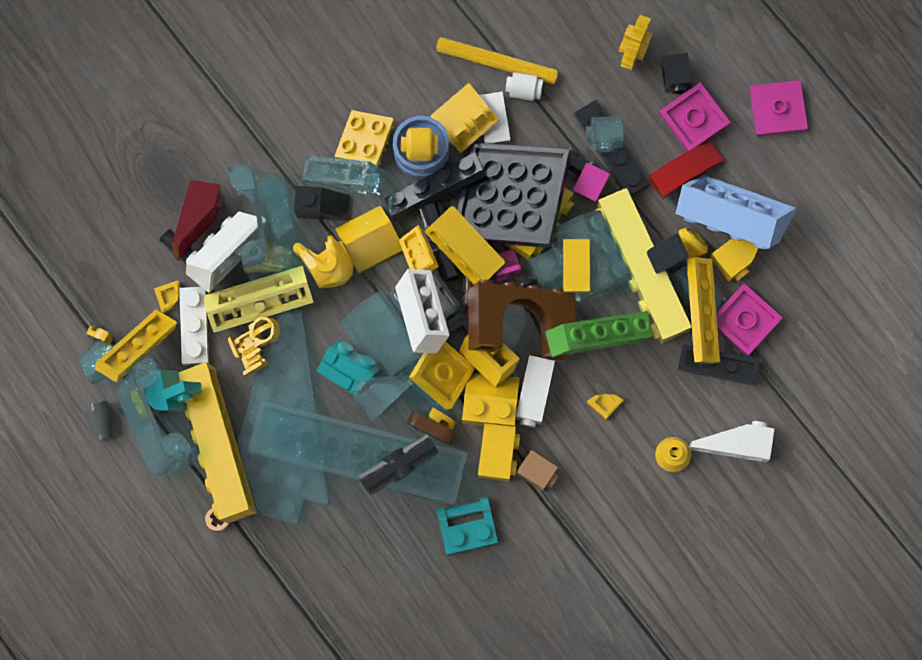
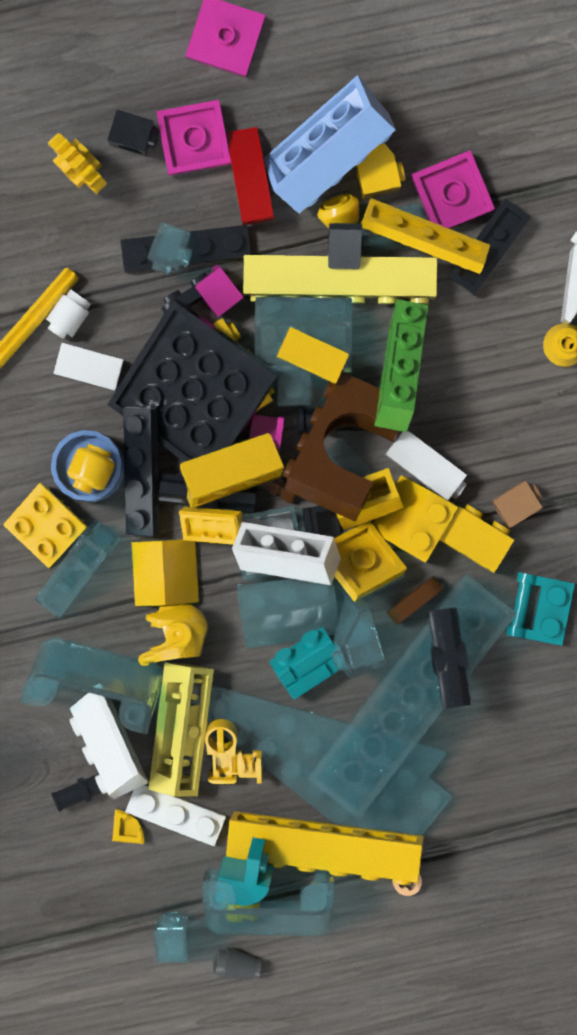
camera: 70 degrees left, 10 degrees up
(99, 334) = (138, 925): yellow tile -> none
(135, 345) = (176, 892): yellow plate -> none
(197, 214) = (49, 754): dark red slope -> none
(320, 203) = (100, 608): black slope -> none
(442, 419) = (410, 583): yellow tile -> none
(465, 117) = (74, 400): yellow hinge -> none
(605, 404) = (474, 393): yellow tile -> none

